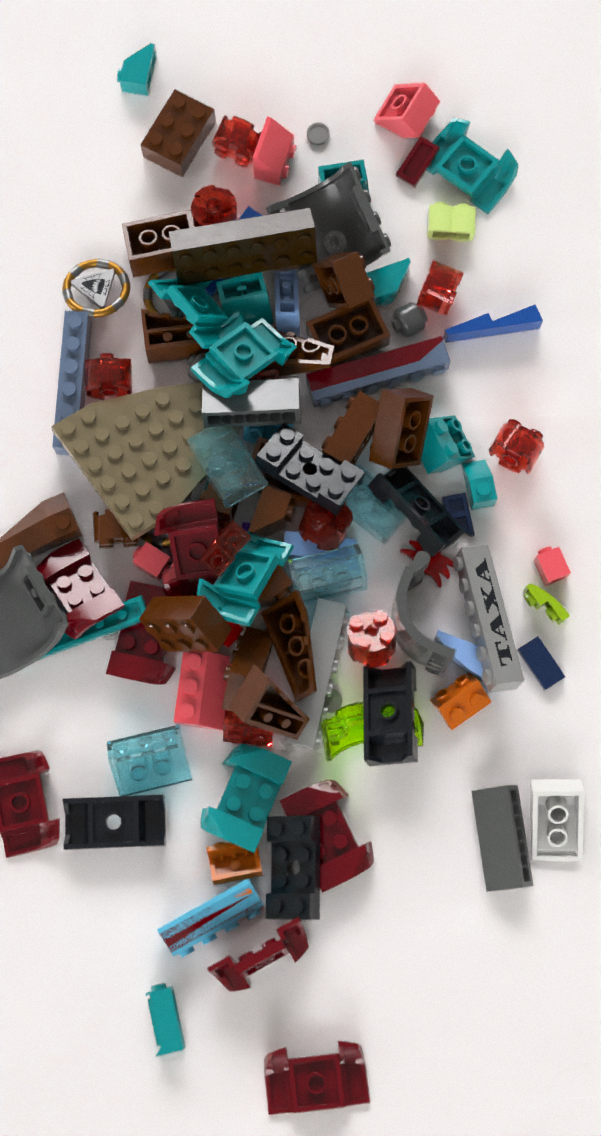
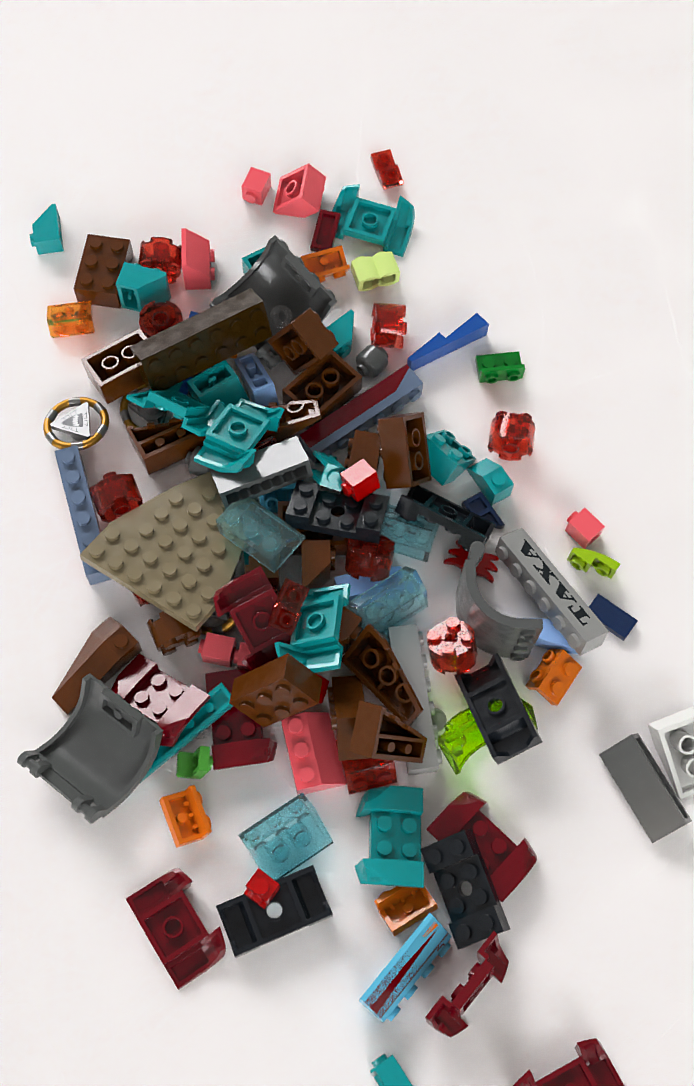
camera: 25 degrees left, 10 degrees down
(66, 707) = (186, 816): none -> orange bracket
(90, 661) = (194, 764): none -> bright green bracket
(107, 799) = (261, 888): none -> red brick
(128, 173) = (70, 319): none -> clear orange bracket
(207, 164) = (141, 286): none -> teal slope
(317, 134) = (228, 236): light grey piece -> none
(318, 426) = (331, 474): none -> teal window
(340, 446) = (359, 480): none -> red brick
(365, 87) = (256, 186): none -> coral brick
(402, 198) = (327, 263): none -> orange bracket
(508, 111) = (386, 170): none -> clear red slope
(537, 368) = (499, 367): none -> green bracket

